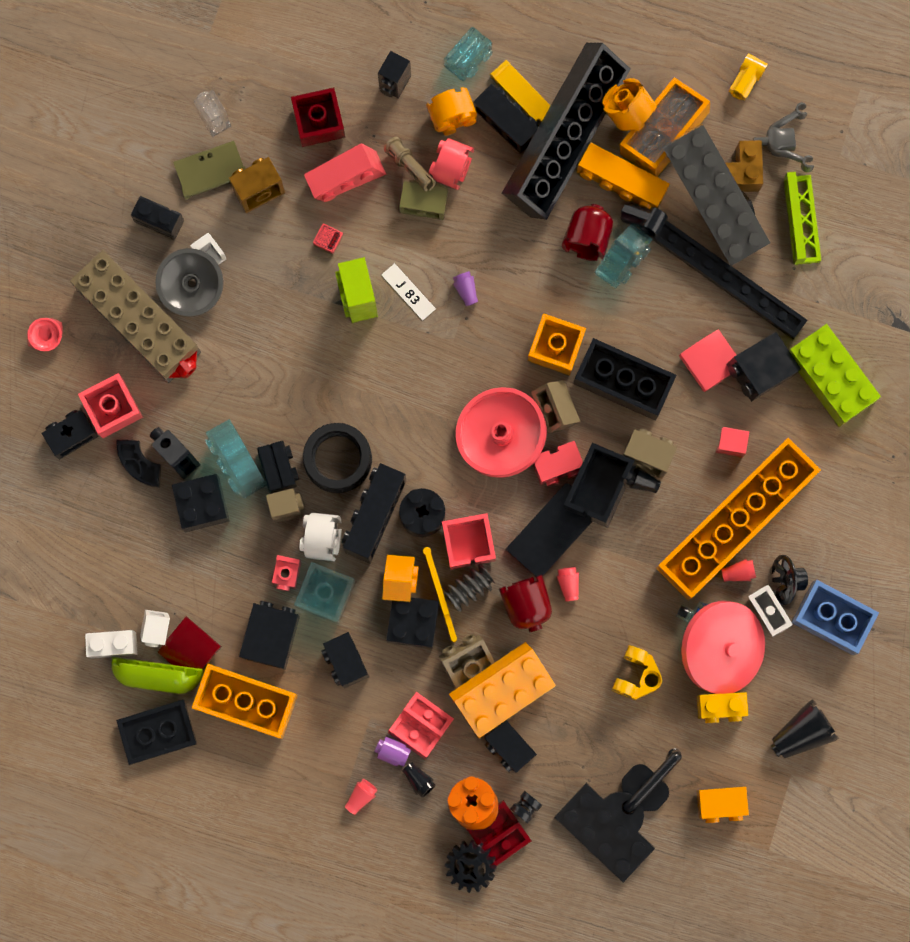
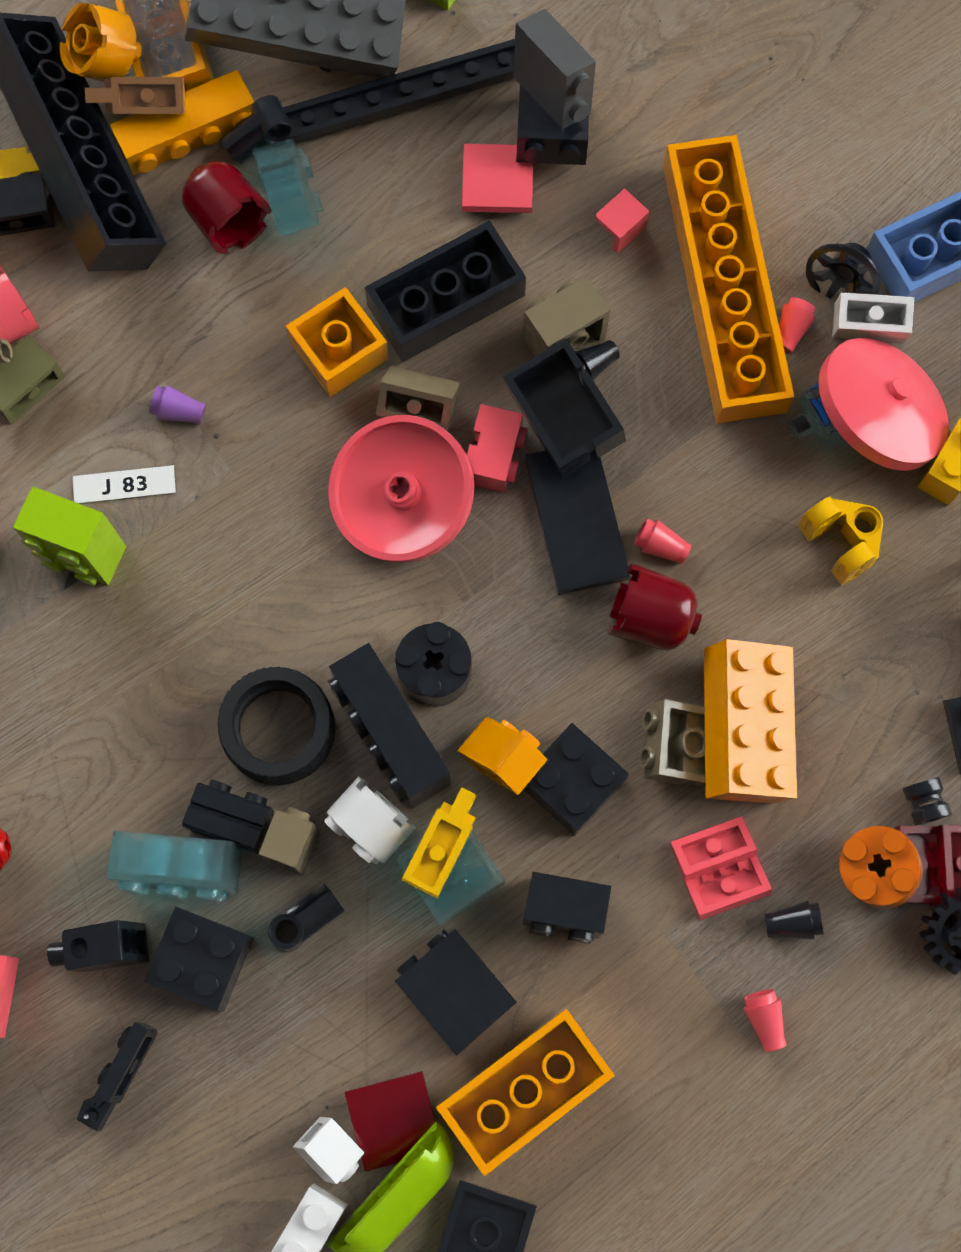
camera: 55 degrees left, 5 degrees down
(120, 504) = (118, 1075): none -> black hinge
(136, 464) = (77, 1013): black tile -> none
(256, 539) = (309, 917): none -> black piece
(290, 564) = (372, 895): coral brick -> none
(331, 579) = (441, 845): none -> yellow hinge
(392, 751) = (733, 931): medium lavender brick -> none
(427, 553) = (558, 716): yellow piece -> none
(468, 541) = (517, 629): coral piece -> none
(470, 587) = (578, 671): dark grey piece -> none
(509, 746) = (833, 767): black brick -> none
(615, 147) = (140, 95): none -> medium nougat hinge
(782, 350) = (554, 68): none -> dark grey brick
(833, 375) = (635, 48): lime brick -> none

